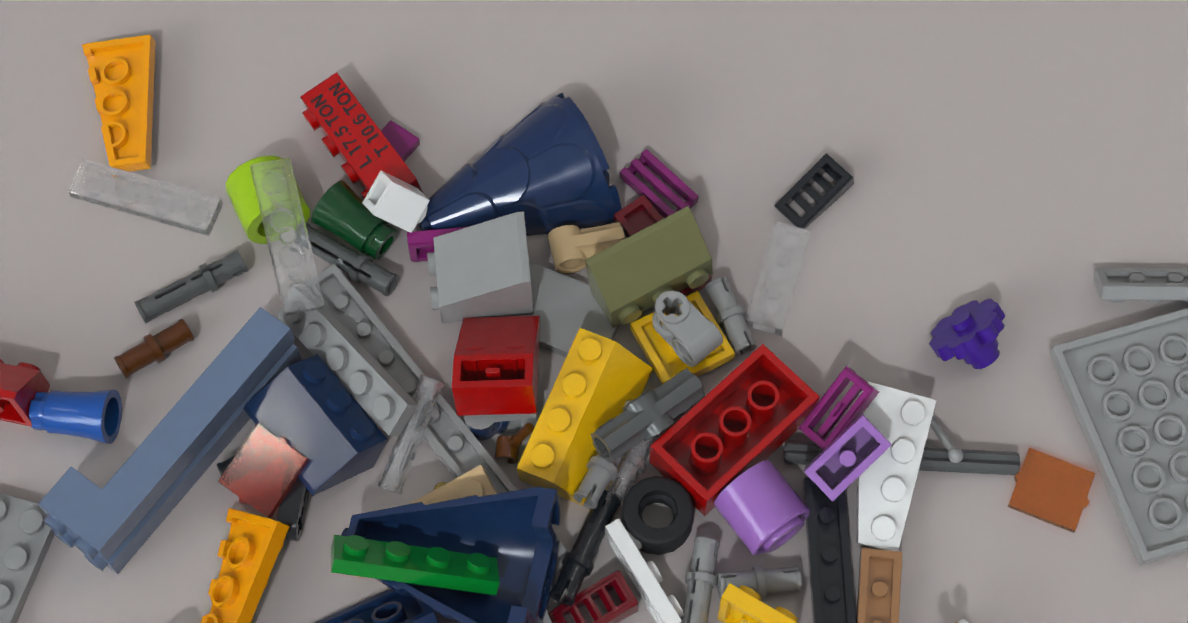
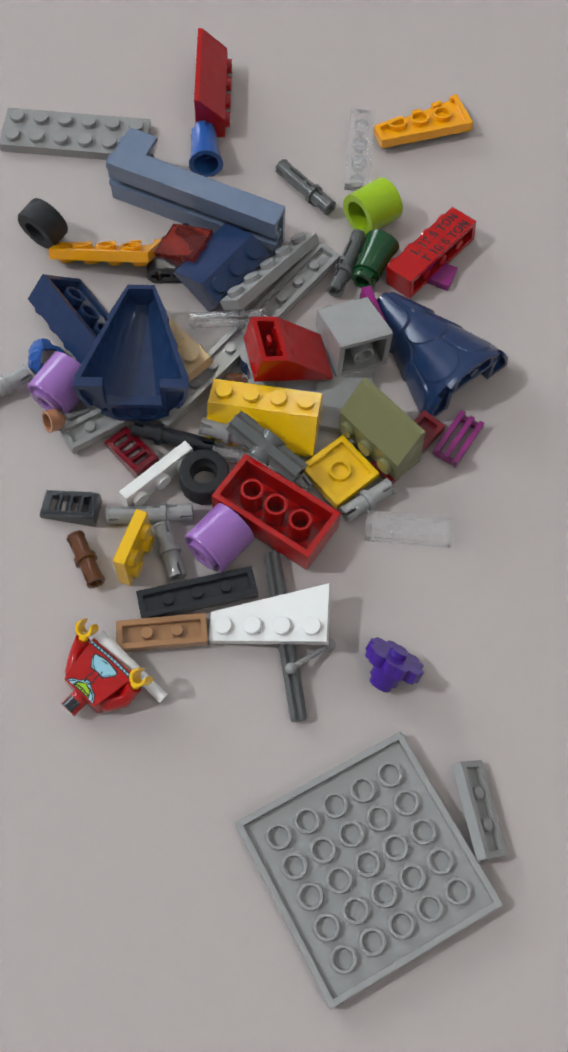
camera: 75 degrees right, 0 degrees up
(154, 348) = (258, 177): reddish brown pin -> none
(287, 236) = (340, 210): clear plate -> none
(396, 202) = (388, 271): white brick -> none
(414, 564) = (127, 325): green plate -> none
(573, 246) = (396, 389): tan piece -> none
(687, 333) = (340, 464): light grey piece -> none
(824, 165) = (490, 556): black slope -> none
(847, 457) = (262, 580): medium lavender brick -> none
(860, 405) = (300, 578): magenta tile -> none
(1051, 490) = (284, 750): clear orange piece -> none

